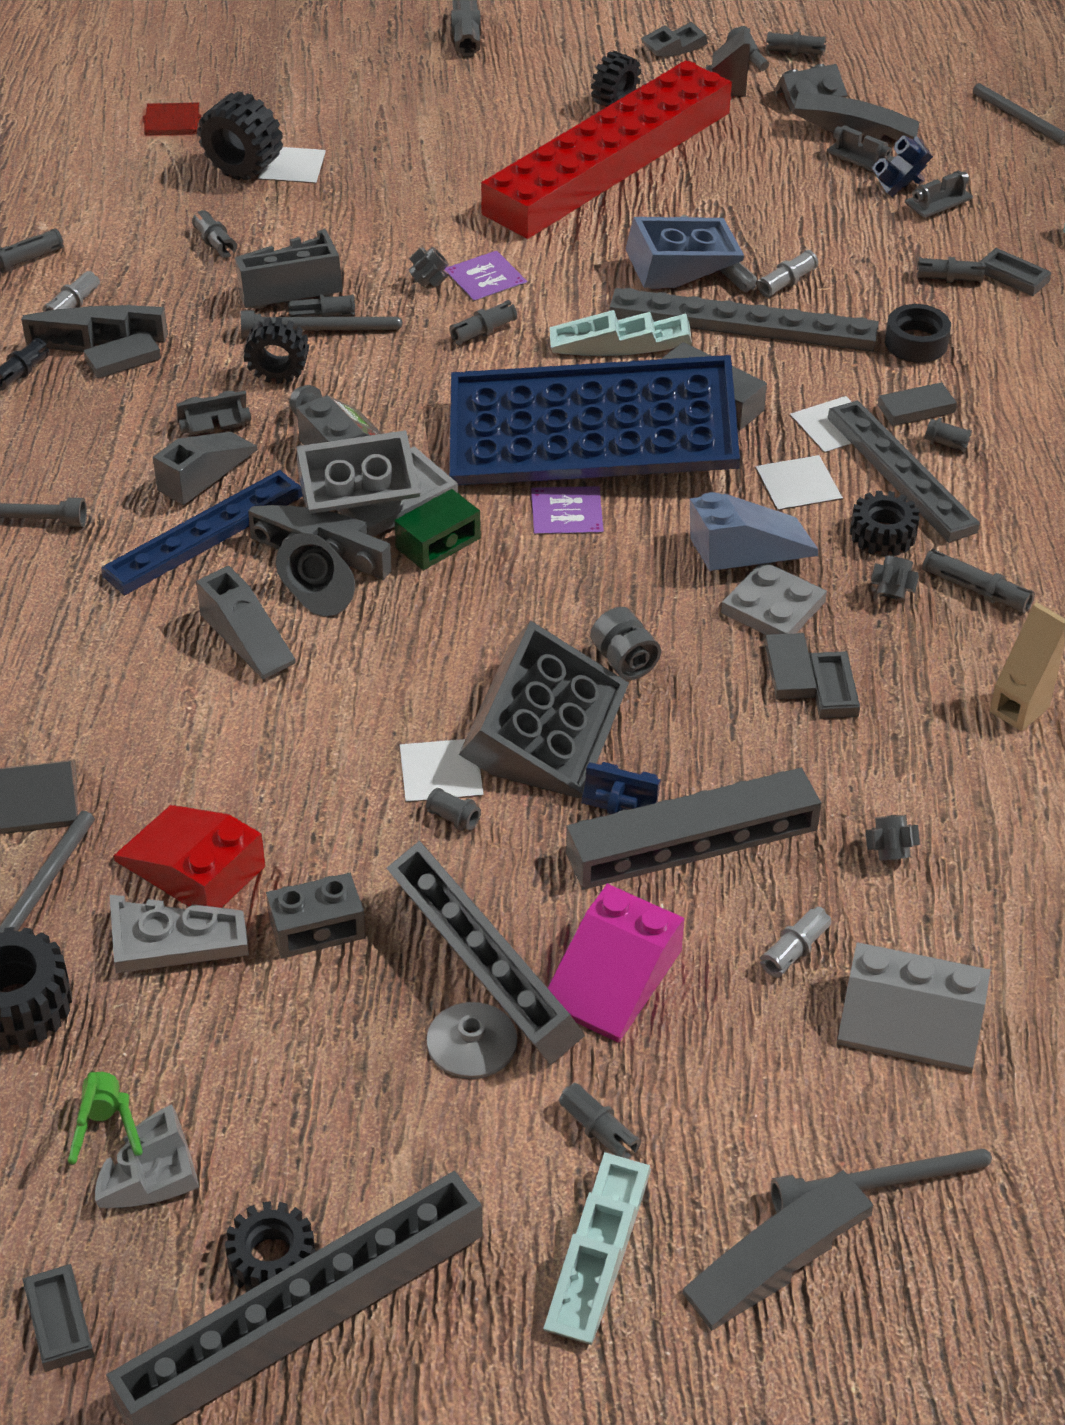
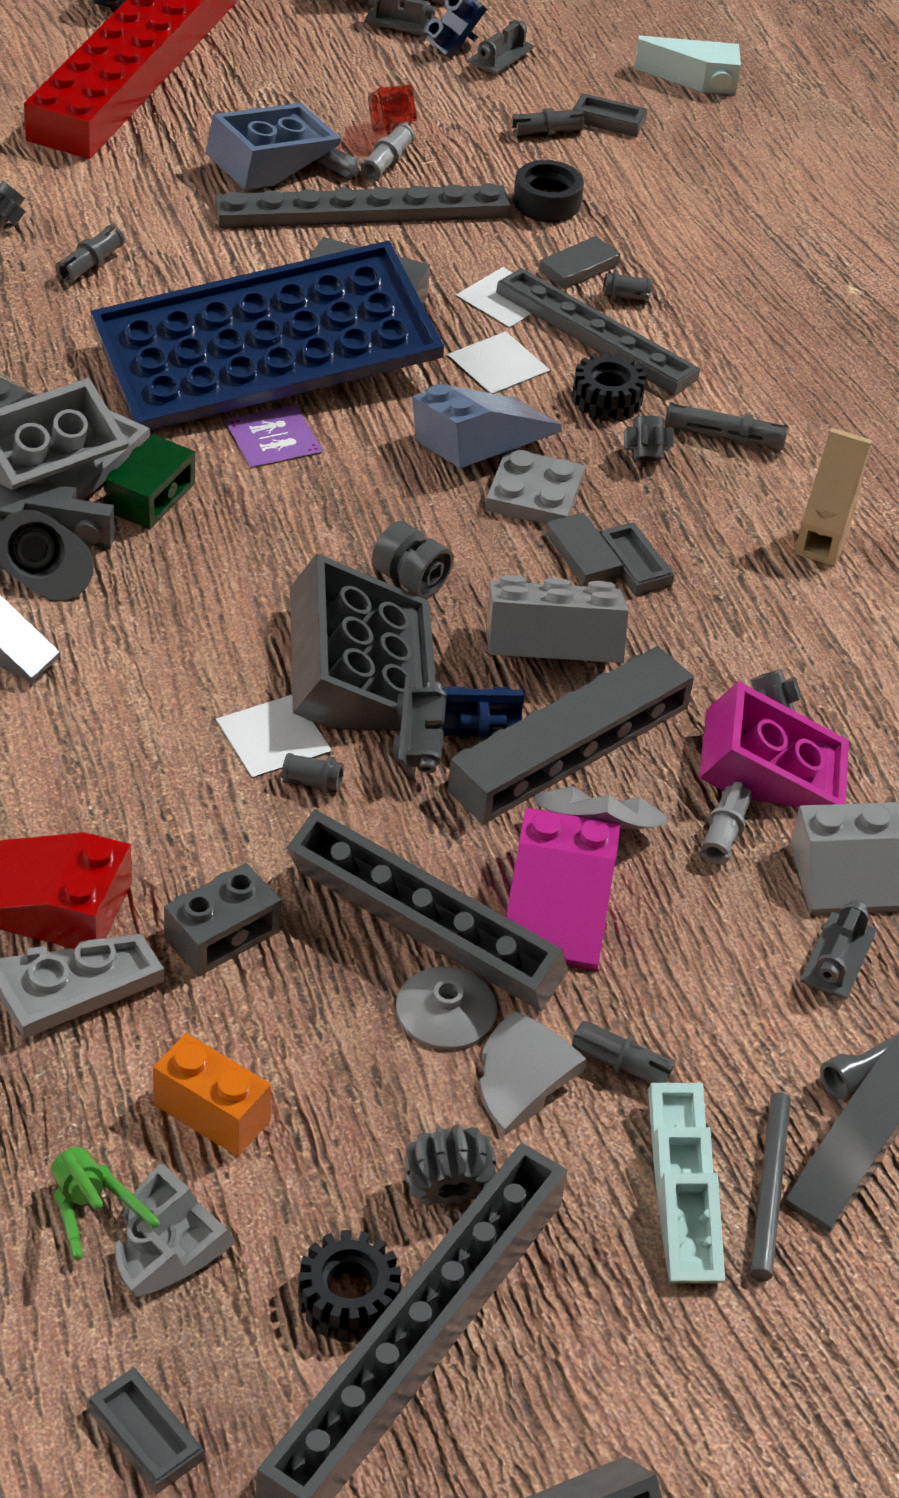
camera: 25 degrees left, 0 degrees up
(234, 1059) = (212, 1094): none -> orange brick
(392, 1171) = (449, 1165): none -> dark grey gear
(485, 275) = (63, 204): medium lavender sticker -> none
(507, 1108) = (523, 1068): none -> light grey brick
(546, 806) = (417, 744): none -> dark grey hinge
(612, 337) = (235, 246): light aqua slope -> none
(675, 1274) = (770, 1187): none -> dark grey bar
(699, 911) = (631, 813): none -> light grey brick
(720, 724) = (556, 620): none -> light grey brick
(806, 234) = (392, 106): none -> clear red brick
(843, 1084) = (840, 951): none -> dark grey hinge
(869, 889) = (772, 751): none -> dark pink slope

